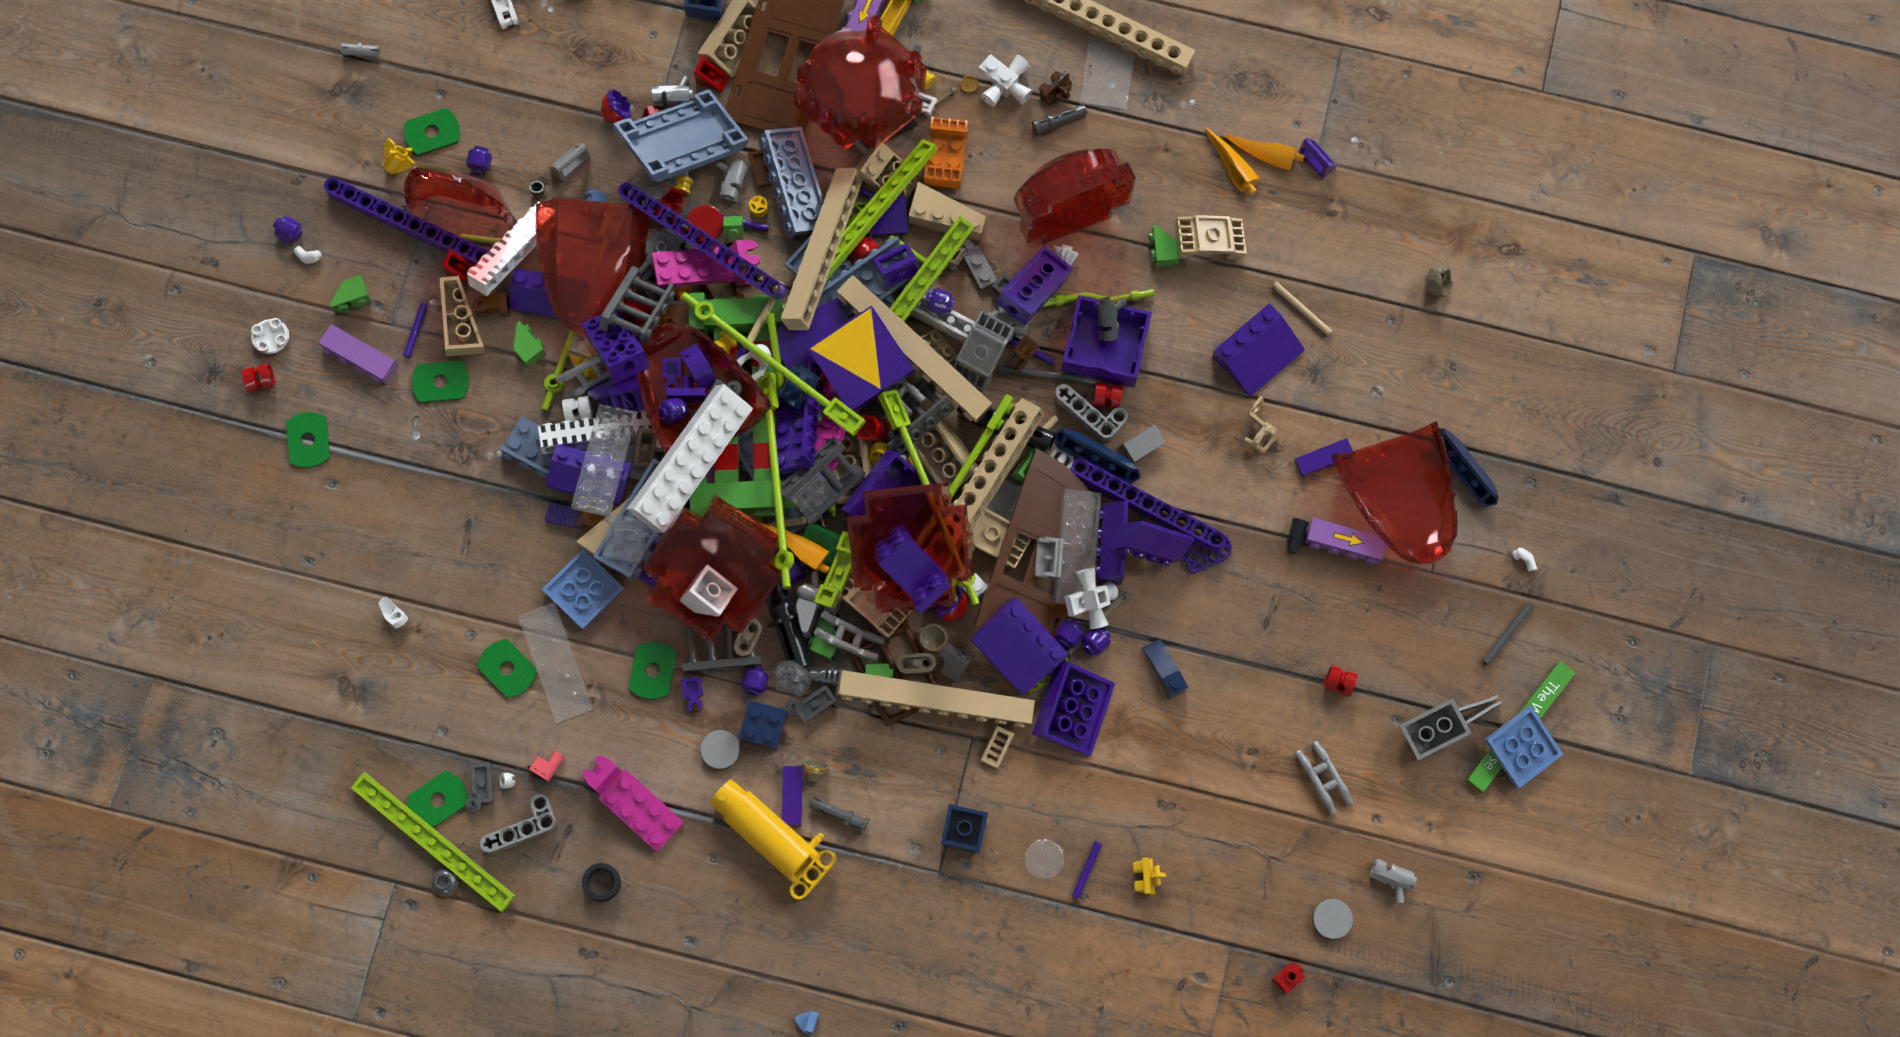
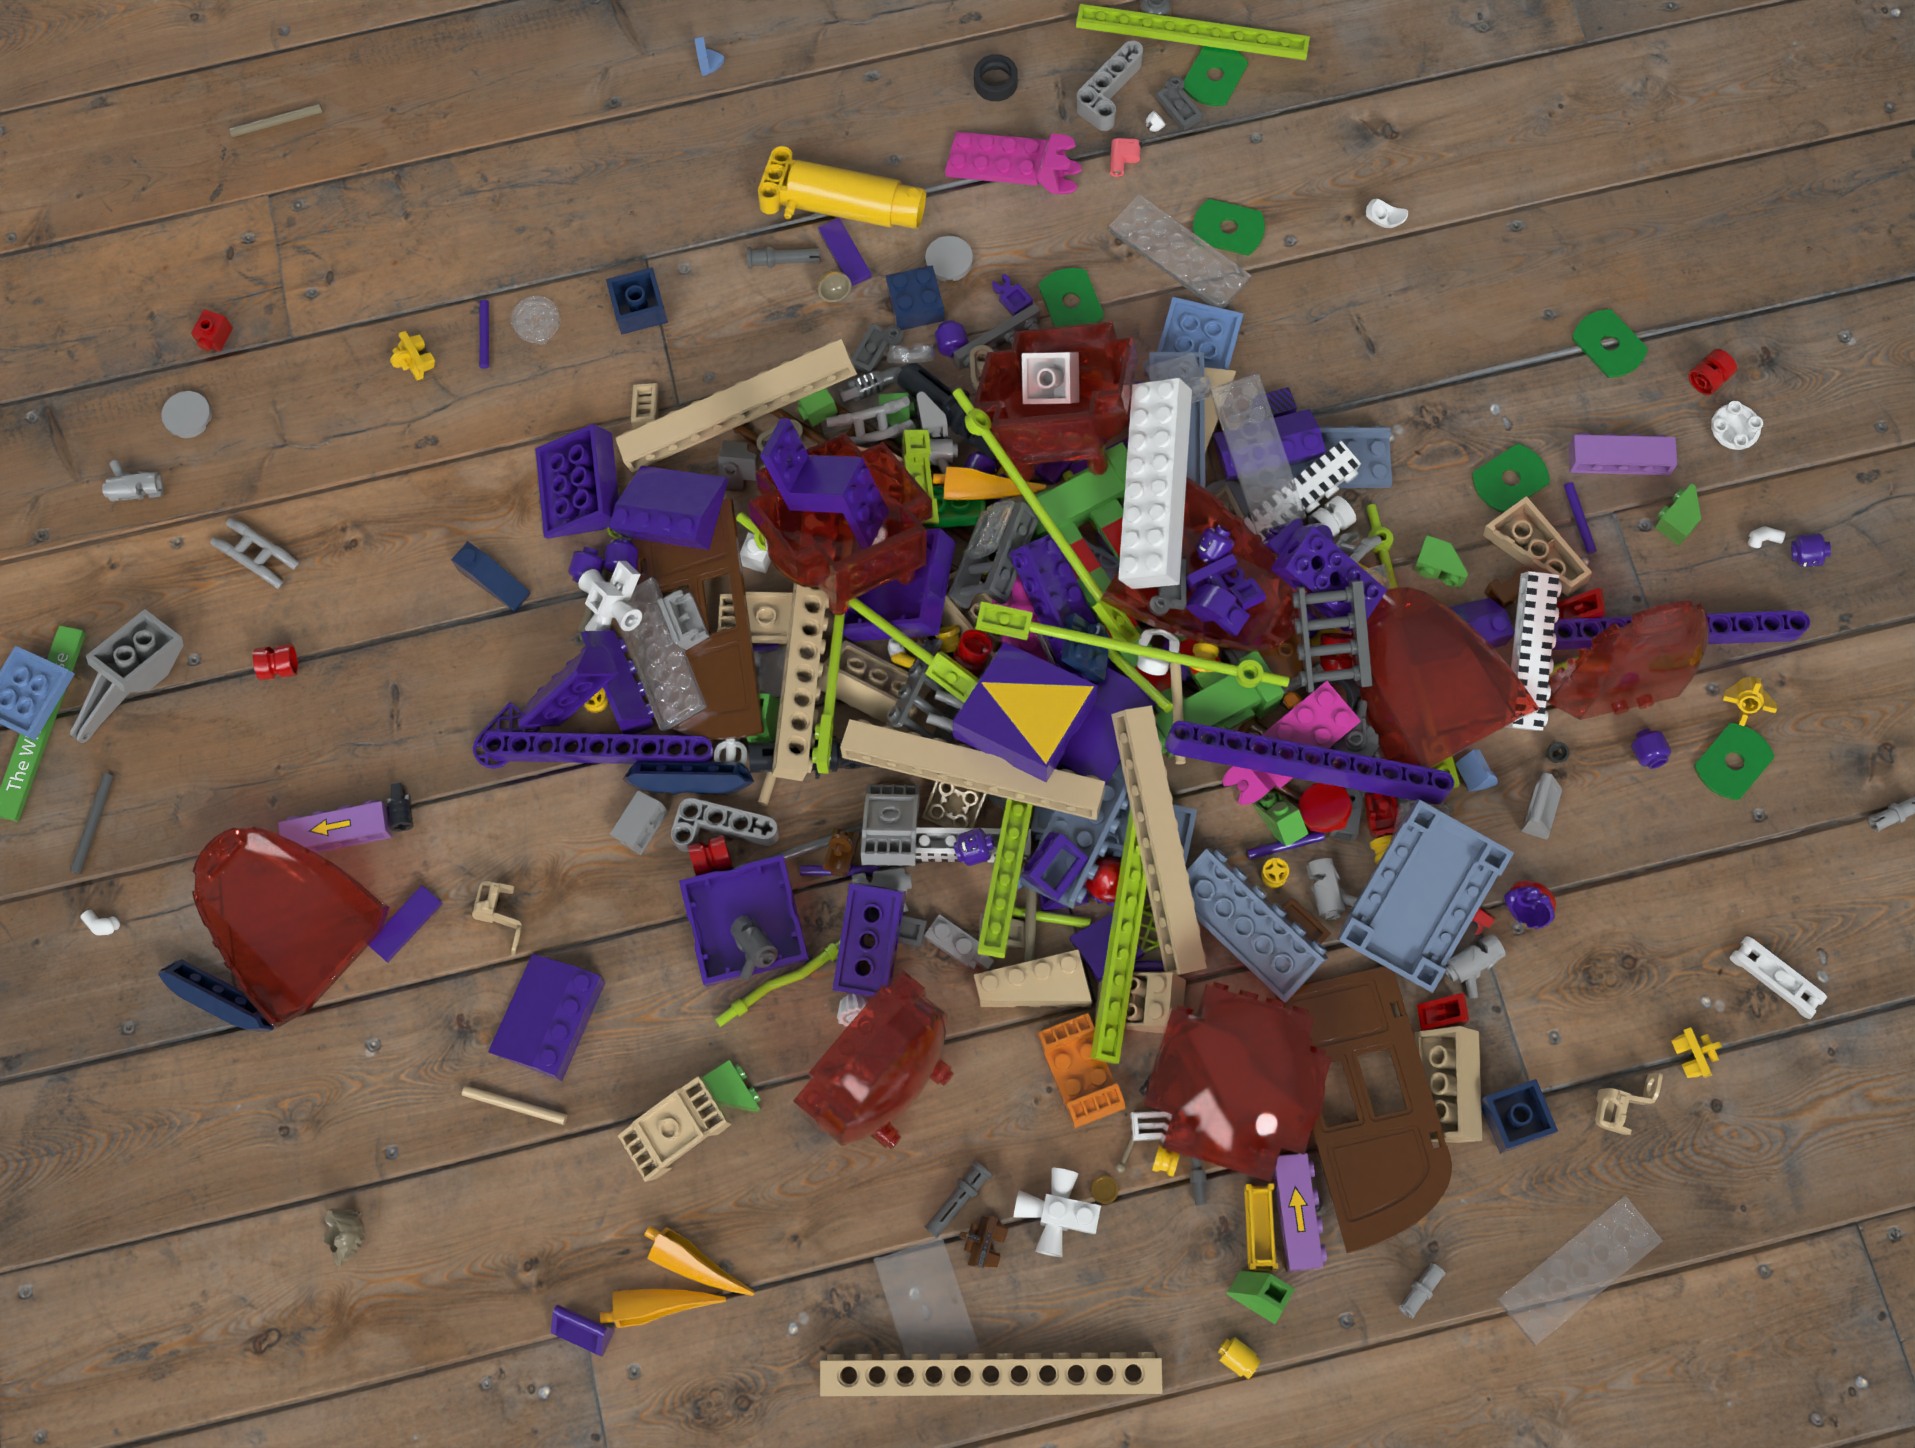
camera: 160 degrees right, 5 degrees down
(933, 243) = (1030, 925): none -> dark tan bar

